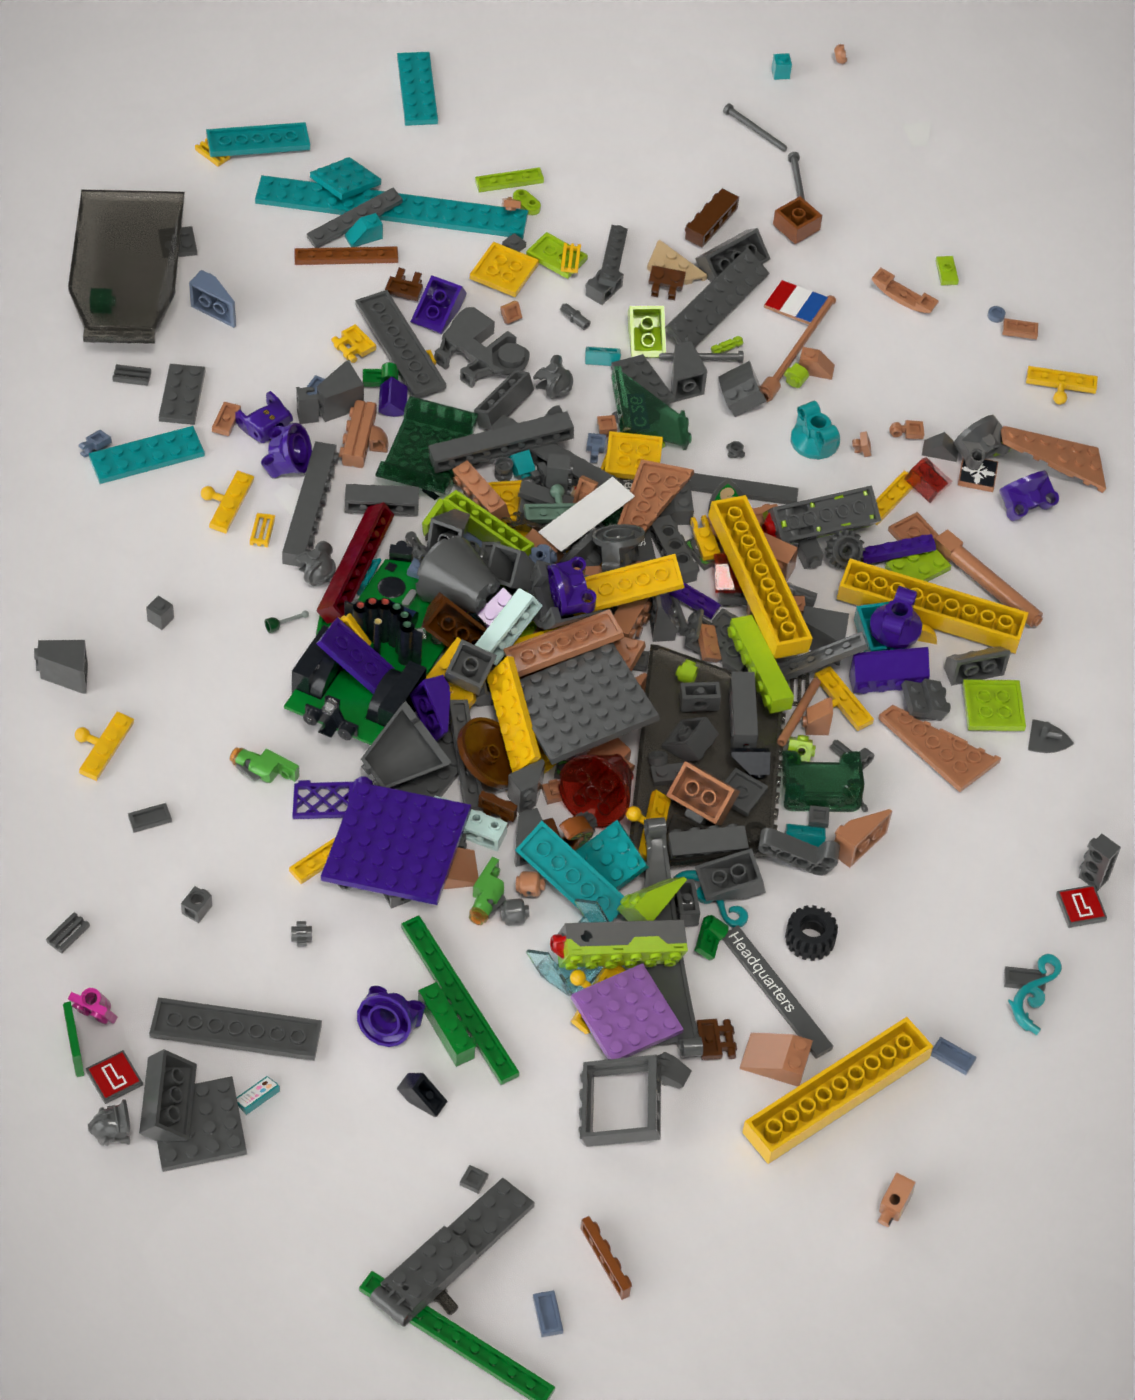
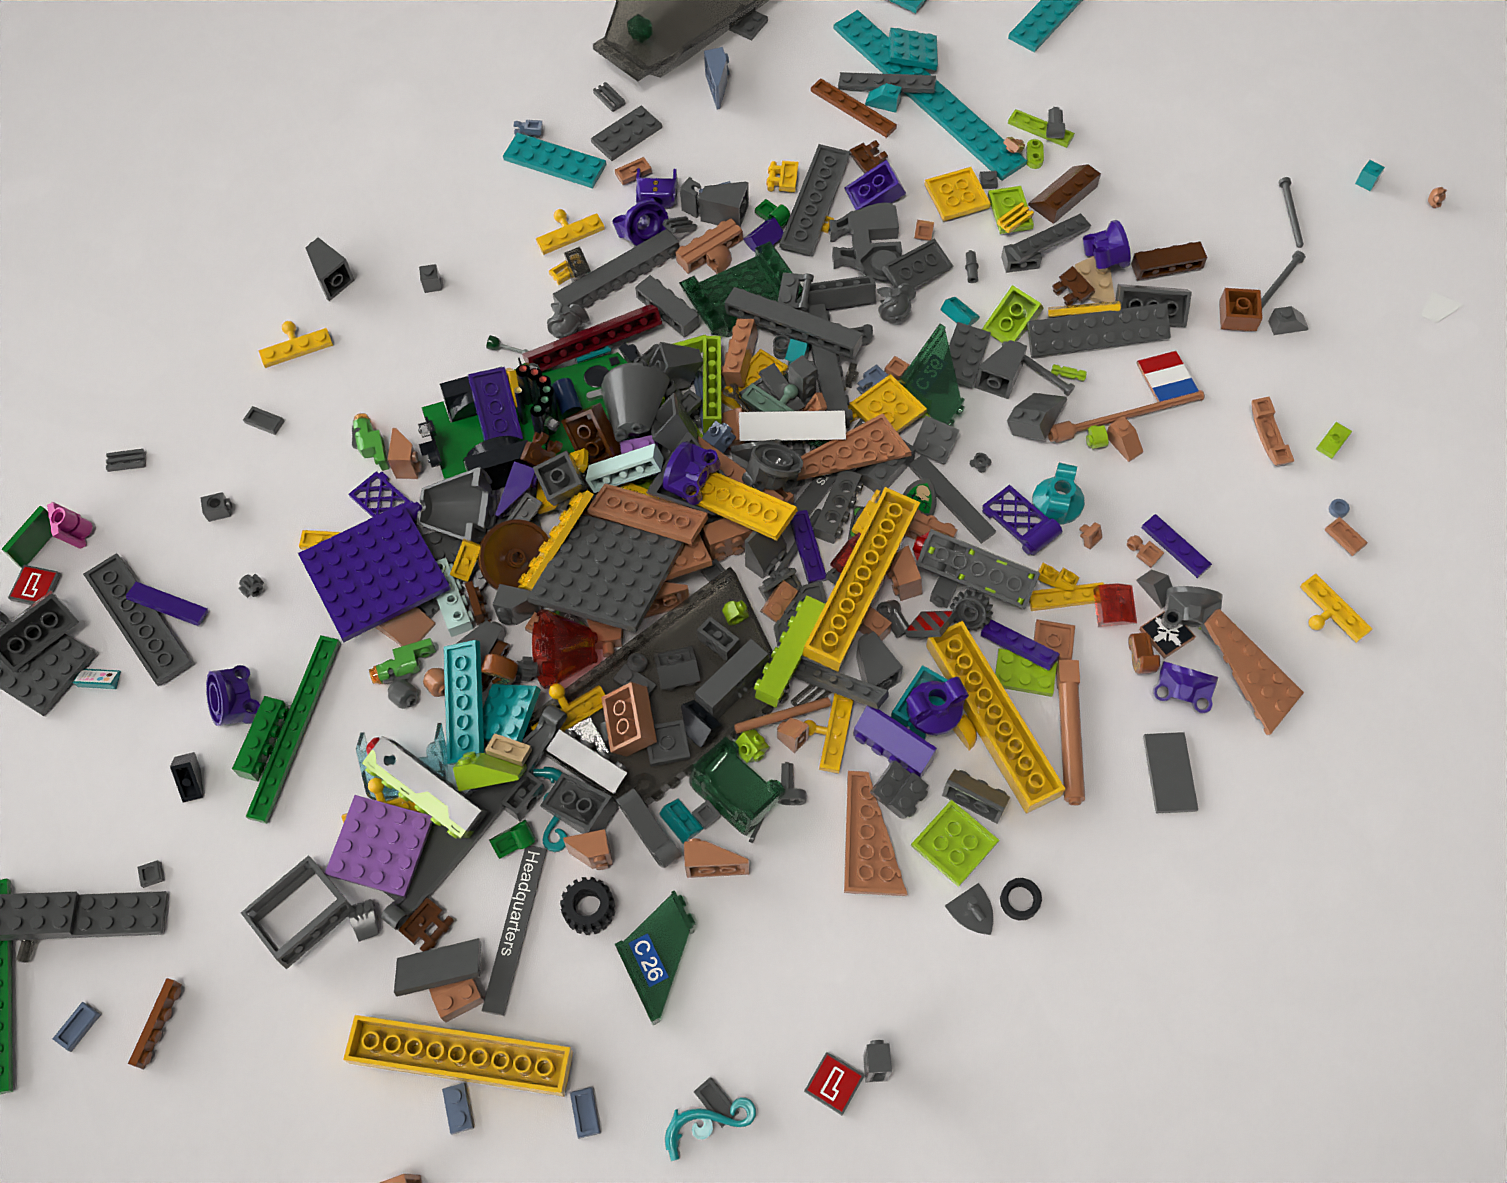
camera: 50 degrees right, 10 degrees up
(249, 997) = (167, 603): none -> dark purple tile
(278, 516) = (576, 263): none -> clear smoke slope
(310, 751) = (403, 457): none -> nougat slope
(317, 439) = (679, 225): none -> dark grey tile
(431, 663) = (535, 455): none -> reddish brown plate
(459, 780) = (465, 560): none -> yellow plate
(471, 420) = (790, 288): none -> dark grey plate
(524, 171) = (1055, 124): none -> dark grey piece
(539, 341) = (918, 265): none -> dark grey tile
(578, 450) = (852, 375): none -> clear smoke plate
(581, 215) = (1066, 192): none -> reddish brown slope
(647, 876) = (508, 749): none -> tan plate
(664, 232) = (1109, 246): none -> dark purple piece
(691, 453) = (935, 439): none -> dark grey plate
(692, 291) = (1083, 308): none -> yellow tile
(759, 1051) = (437, 967): none -> dark grey tile
(774, 895) = (591, 849): none -> nougat slope
(829, 577) = (930, 624): none -> dark grey tile
(830, 471) = (1040, 533): none -> dark purple piece
(833, 209) = (1287, 320): none -> dark grey slope
(871, 1125) = (457, 1108): none -> sand blue plate
(880, 486) = (1064, 579): none -> yellow slope
(886, 926) = (655, 951): none -> clear green piece
(923, 412) = (1176, 546): none -> dark purple plate
(979, 497) = (1142, 654): none -> dark orange animal
(1067, 716) = (1030, 886): none -> black tyre
(1072, 559) = (1170, 772): none -> dark grey tile

